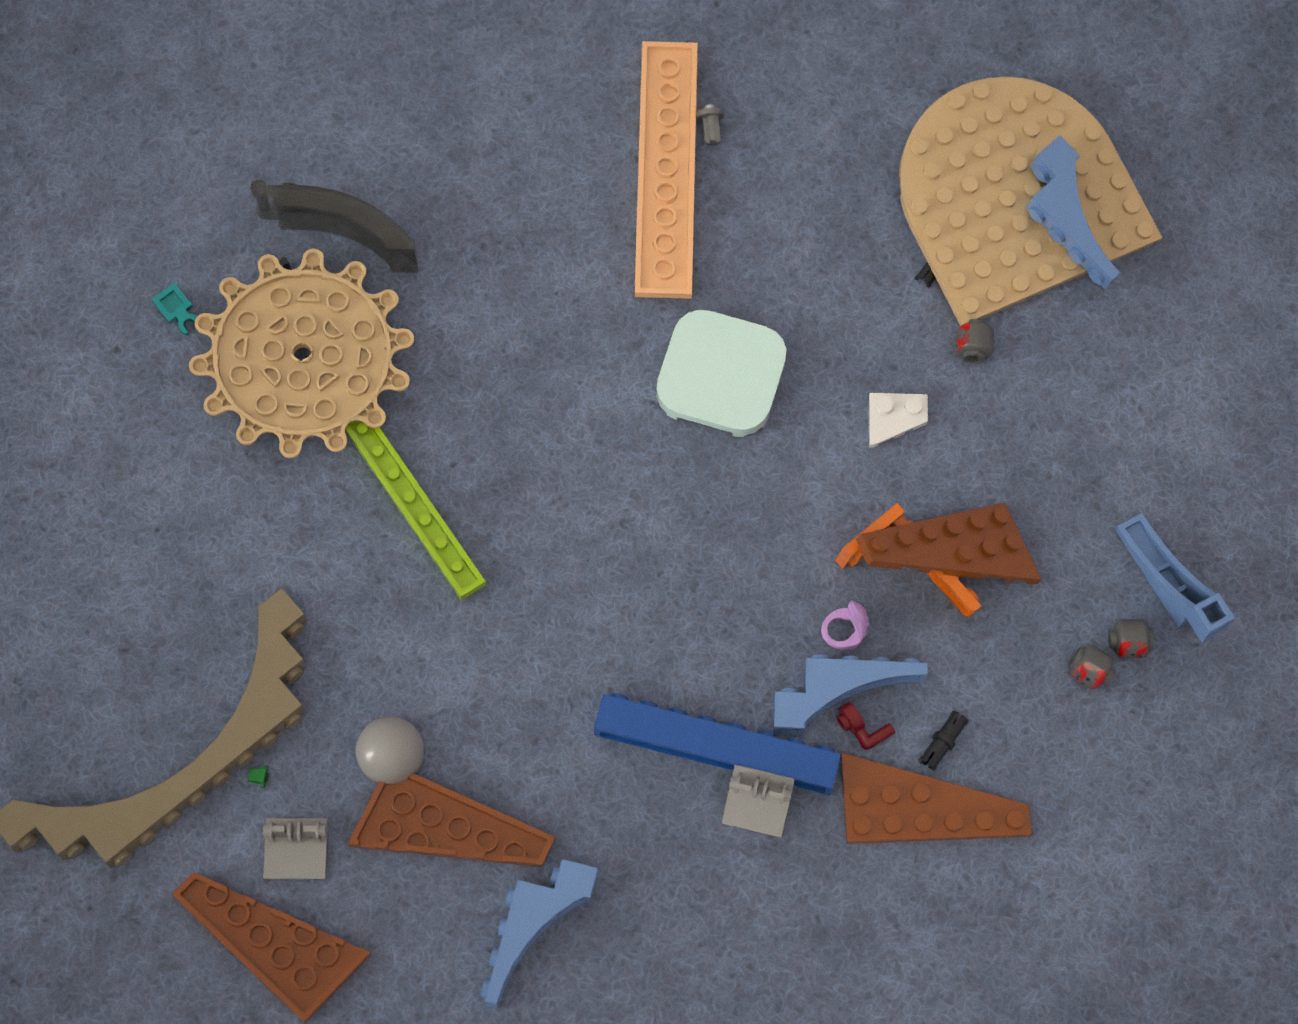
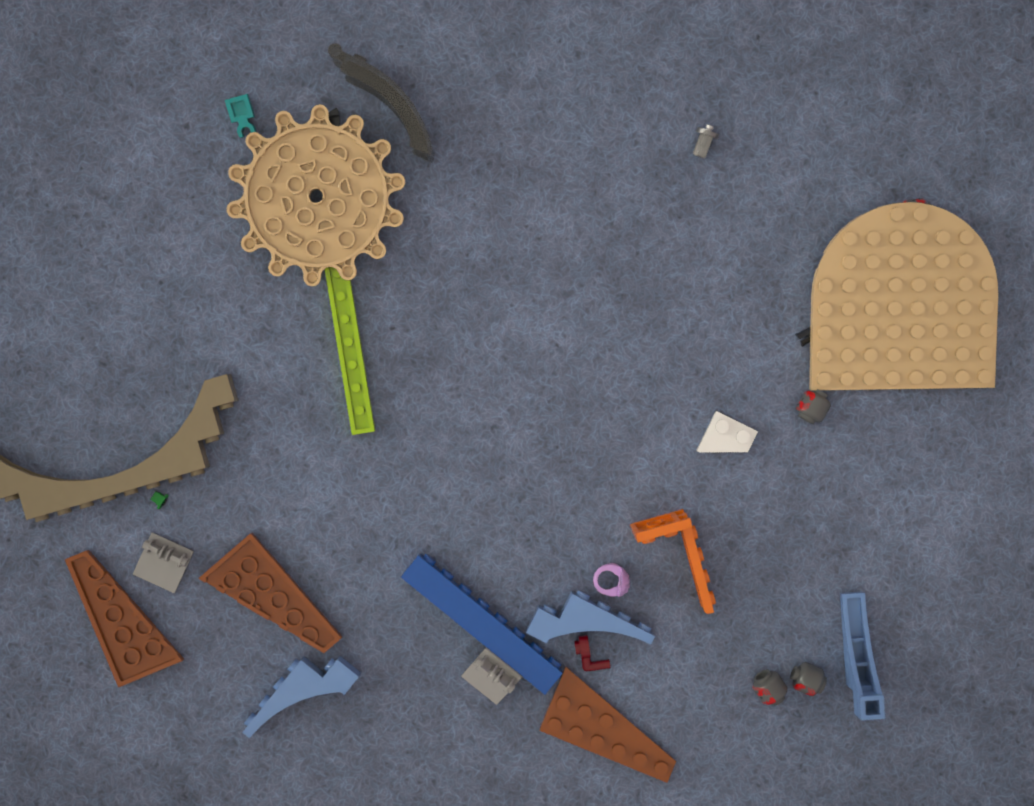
camera: 30 degrees right, 20 degrees up
(389, 750) = (255, 524): light grey piece -> none
(666, 170) = (654, 161): light nougat plate -> none
(721, 372) = (616, 347): light aqua tile -> none
(943, 740) = (640, 689): black pin -> none
(960, 544) = (726, 563): dark orange wing -> none
(1060, 211) = (929, 339): medium blue arch -> none

